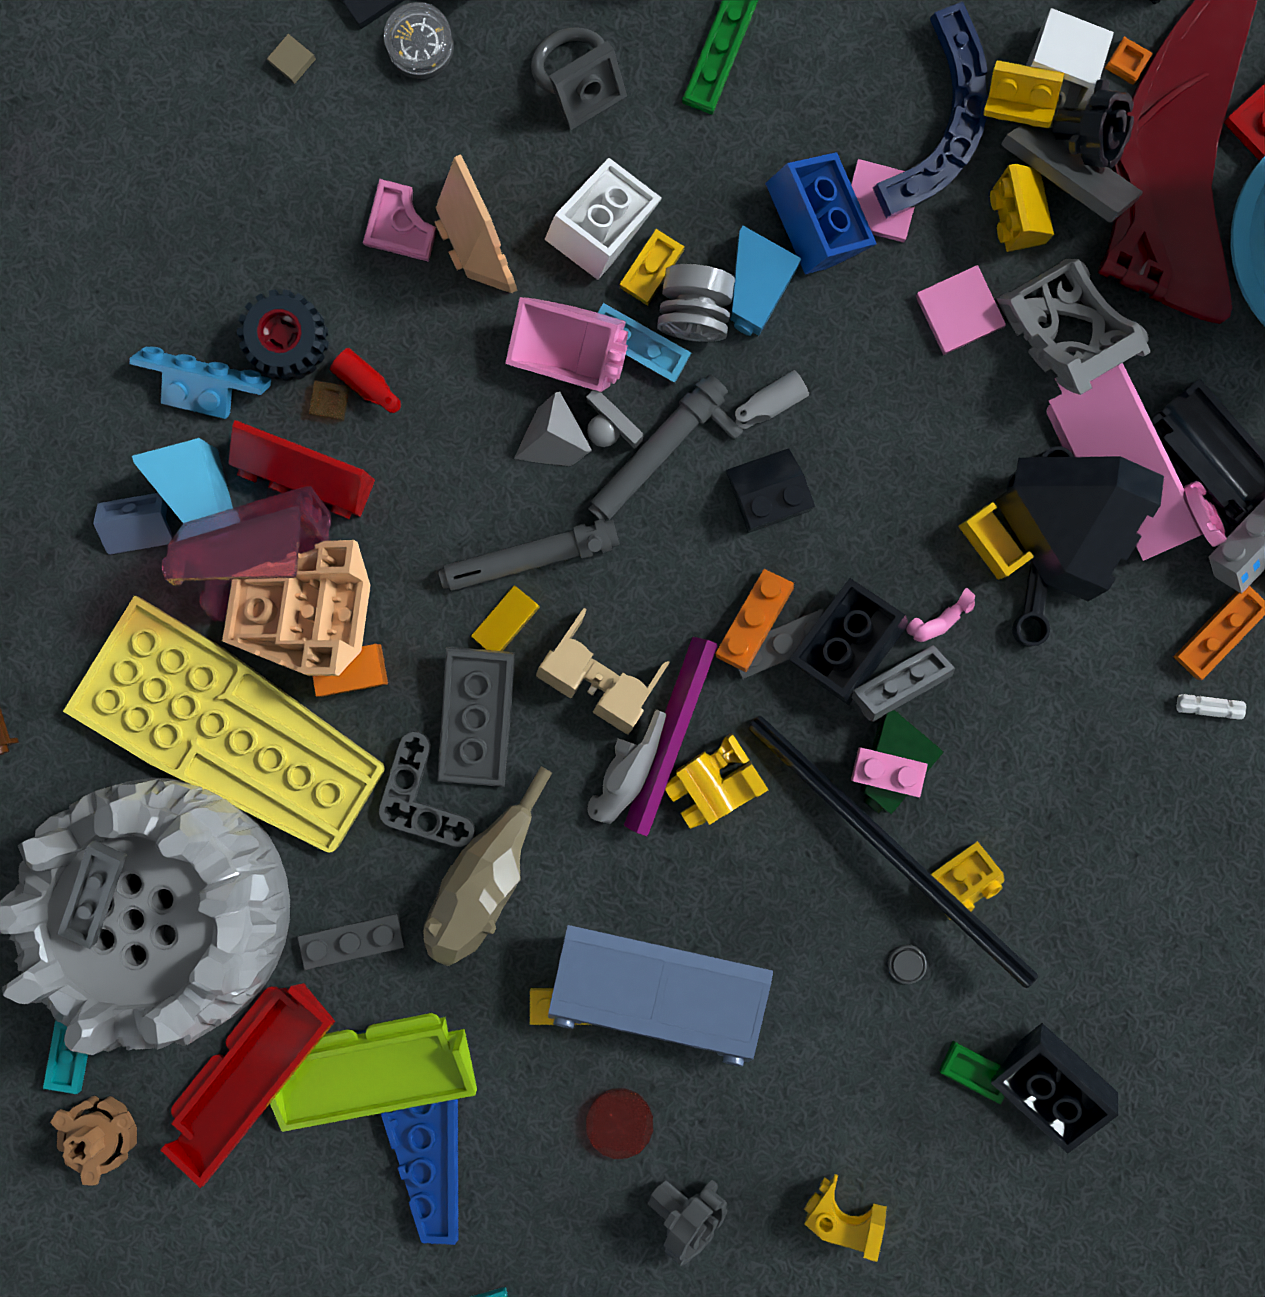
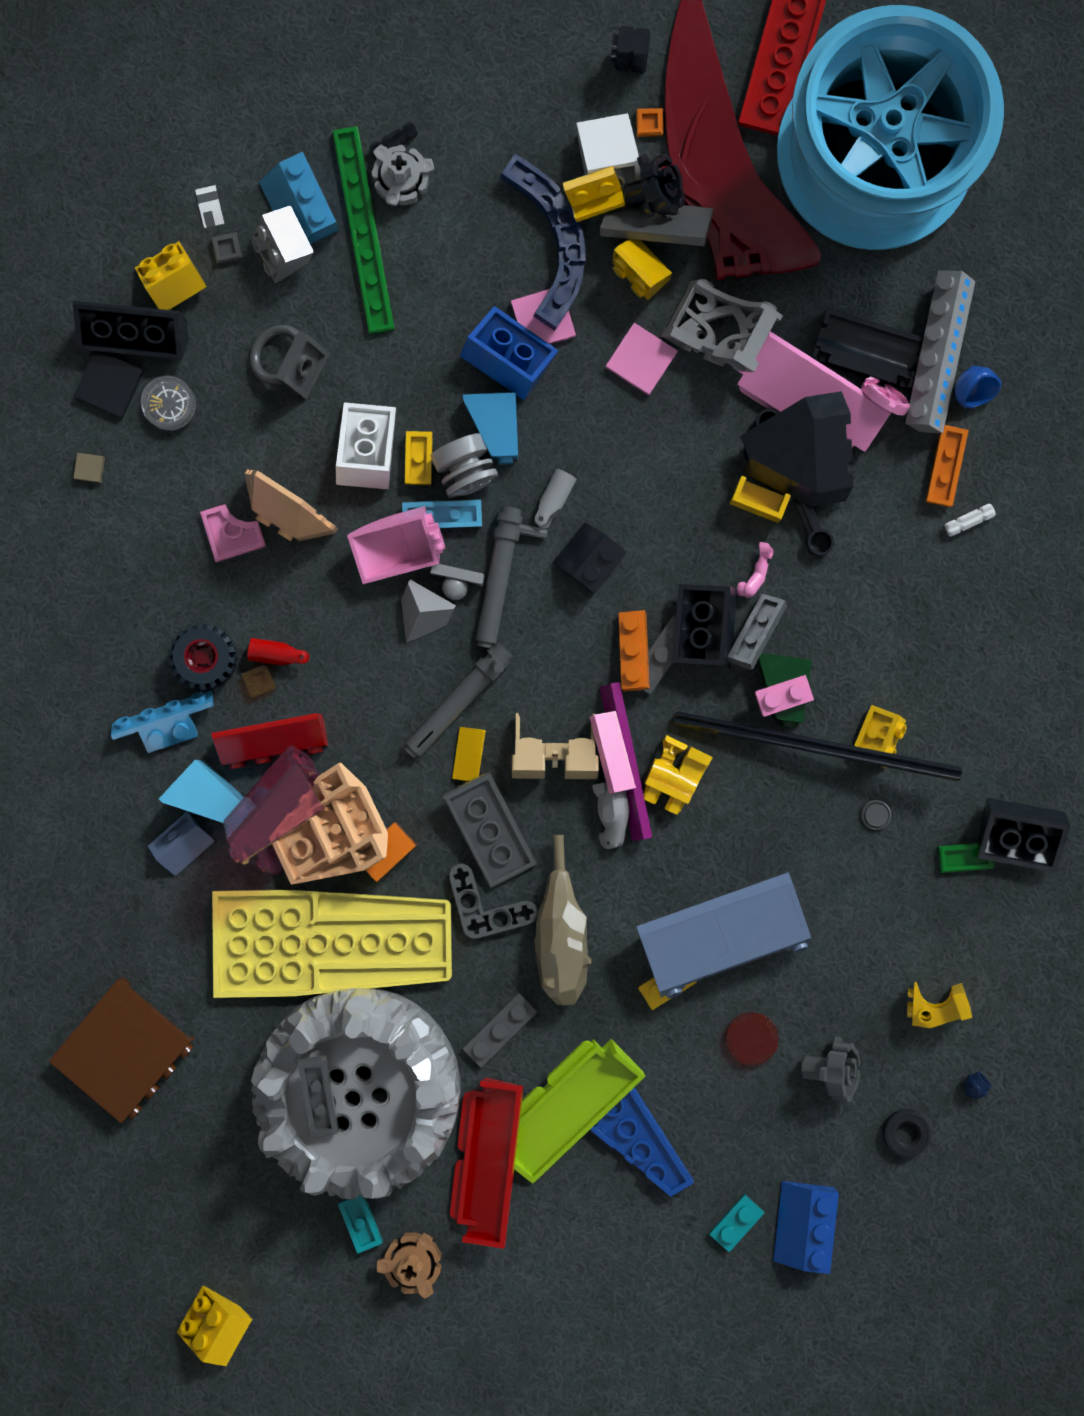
camera: 30 degrees left, 0 degrees up
(662, 716) = (612, 752): none -> bright pink tile

